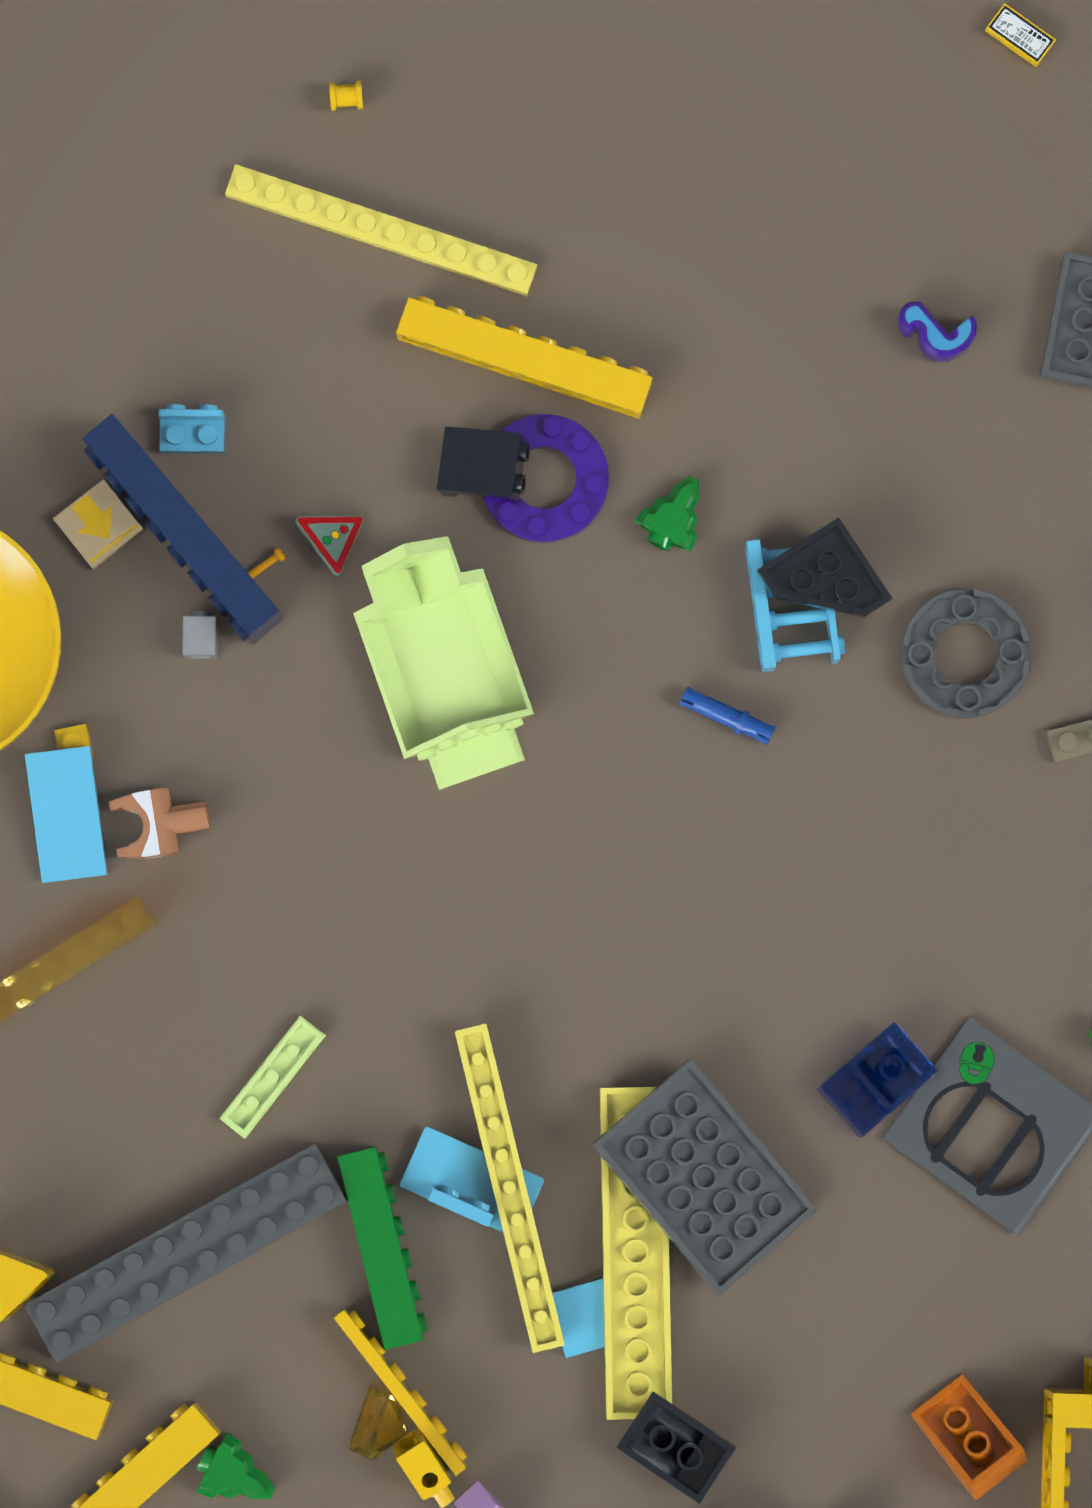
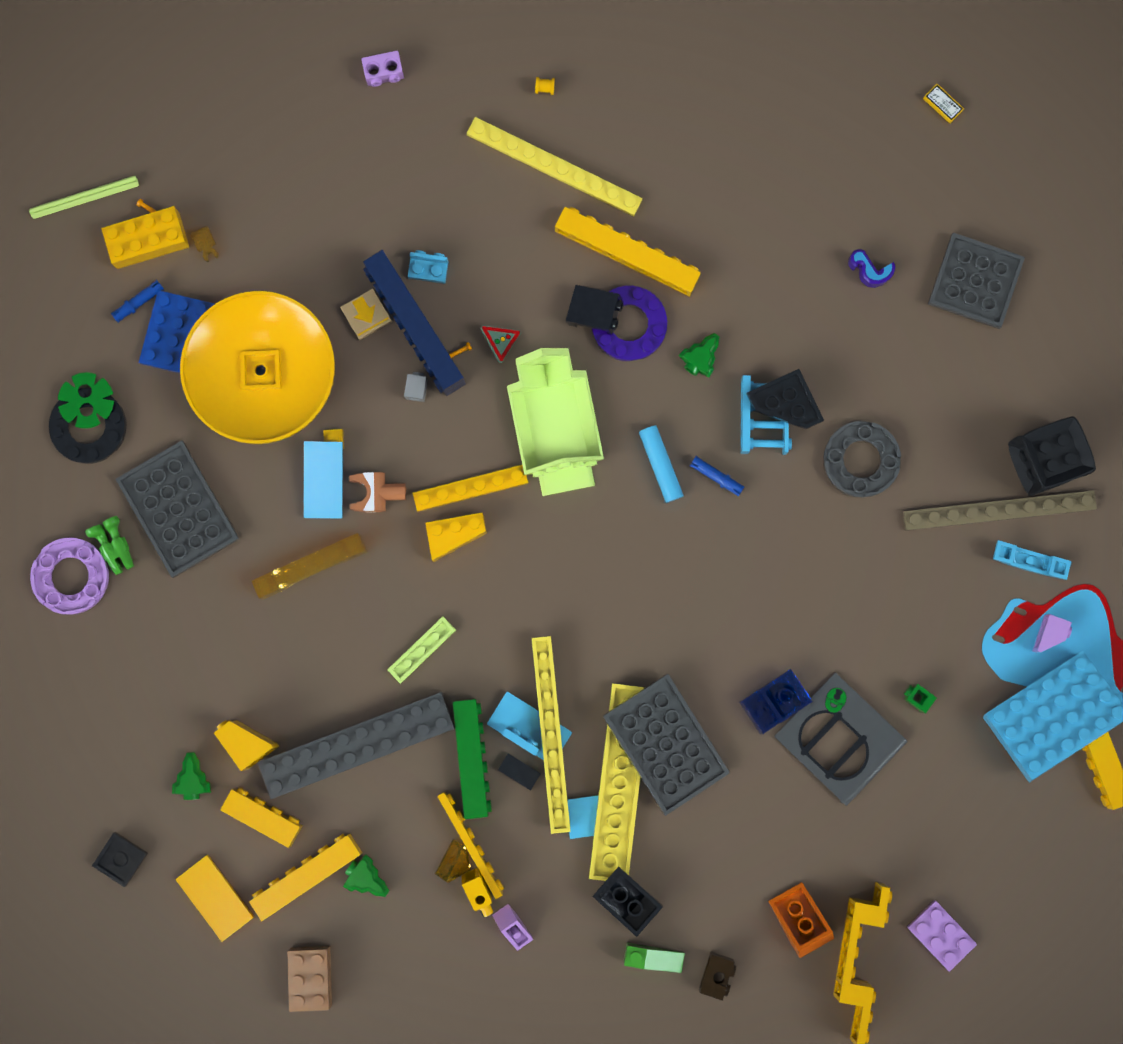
camera: 15 degrees right, 0 degrees up
(64, 94) = (382, 63): none -> lavender brick
(299, 873) = (452, 533): none -> yellow wedge
(315, 793) = (470, 488): none -> yellow plate
(465, 1257) = (519, 771): none -> black tile
(630, 708) = (661, 464): none -> medium azure brick

